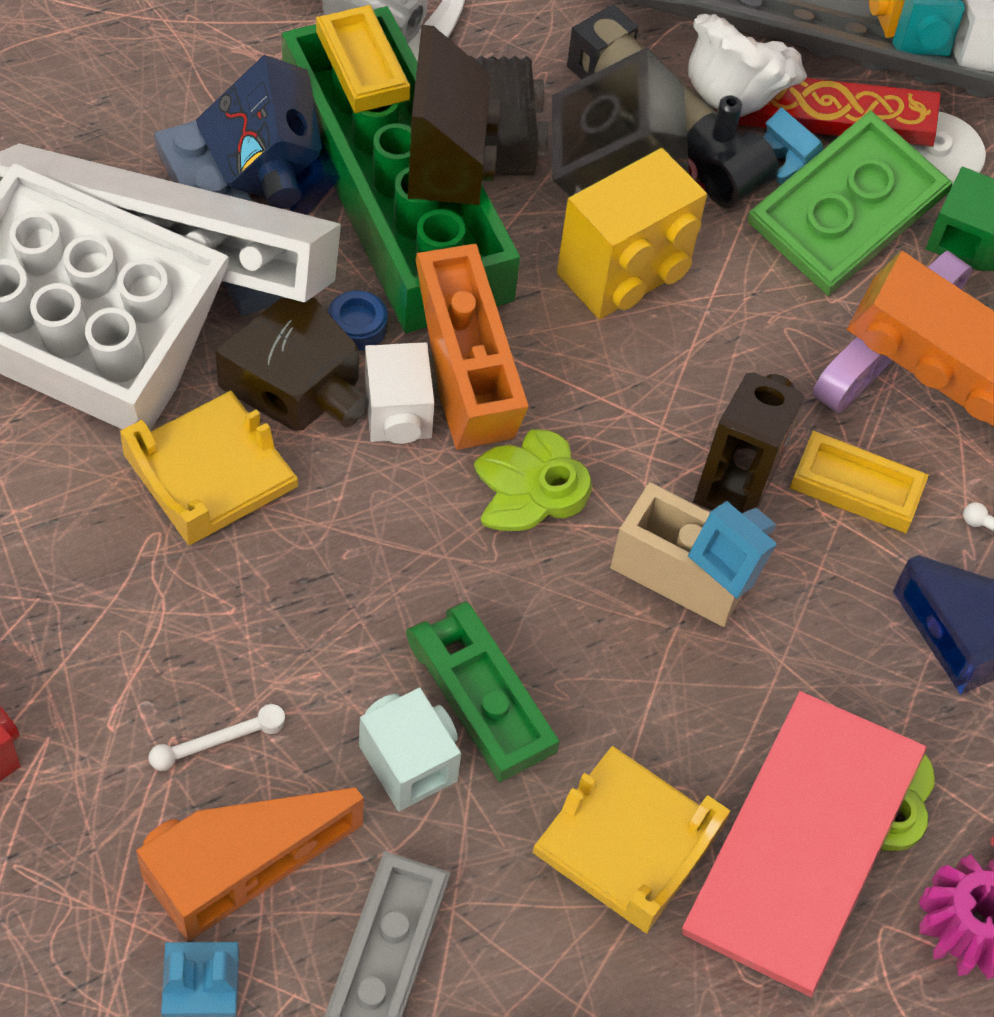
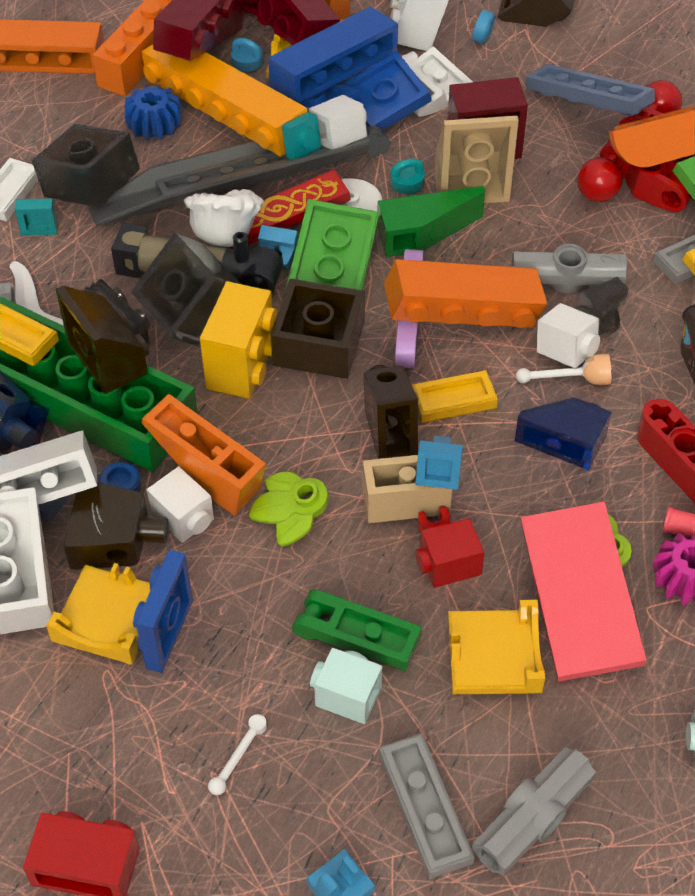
camera: 30 degrees left, 5 degrees down
(236, 852) = (302, 805): orange slope -> none
(262, 504) = (164, 611): none -> blue plate
(677, 668) = (448, 549): none -> red brick
(747, 282) = (318, 328): none -> dark brown brick

